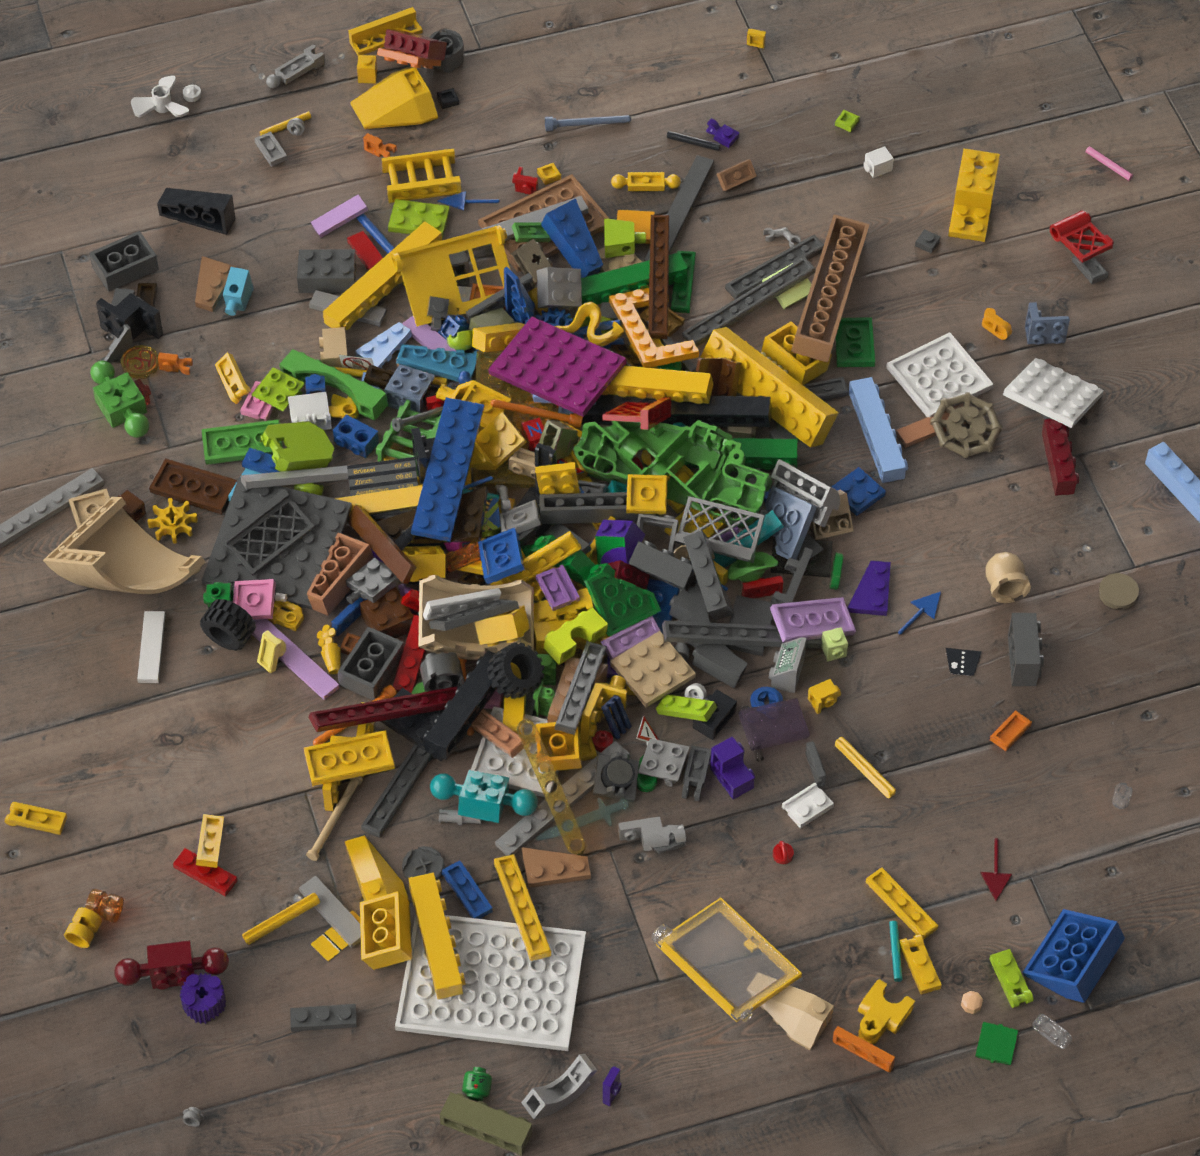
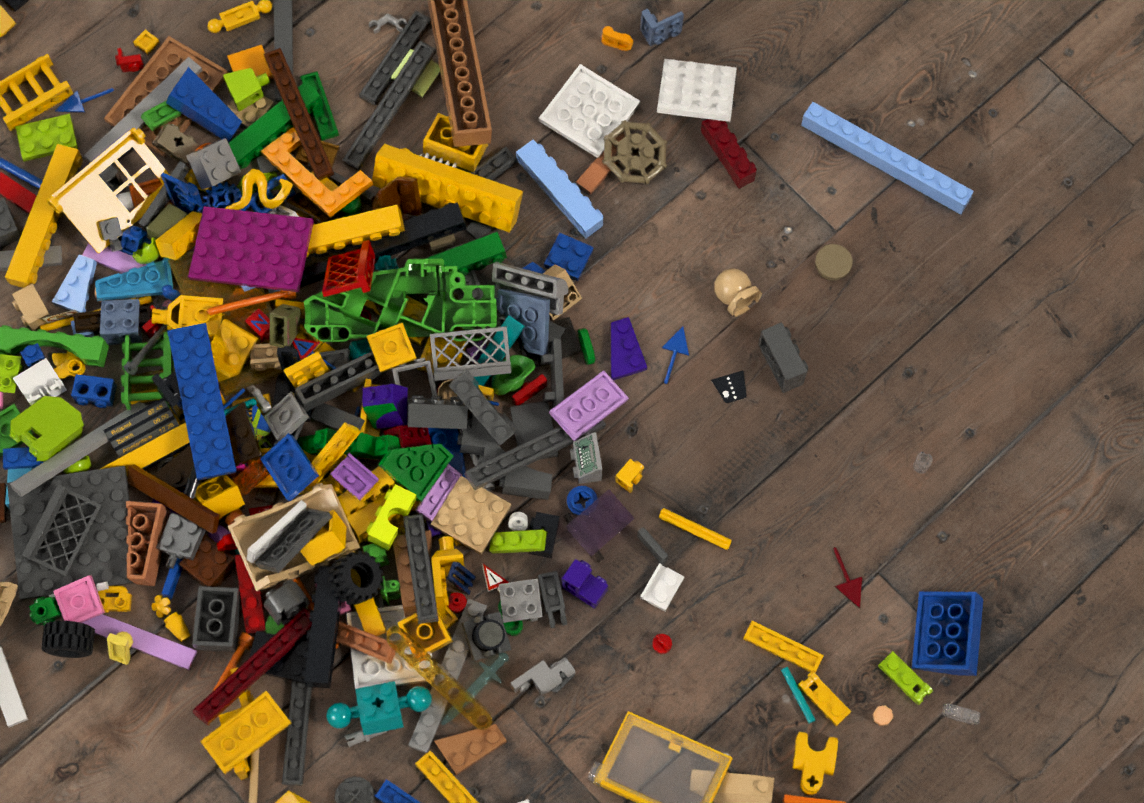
camera: 25 degrees left, 15 degrees up
(349, 643) = (187, 603): dark orange tile -> none
(834, 644) = (617, 421): yellowish green brick -> none
(855, 343) = (503, 108): green plate -> none
(996, 1043) = (919, 744): green piece -> none
(1010, 730) = (801, 438): orange tile -> none

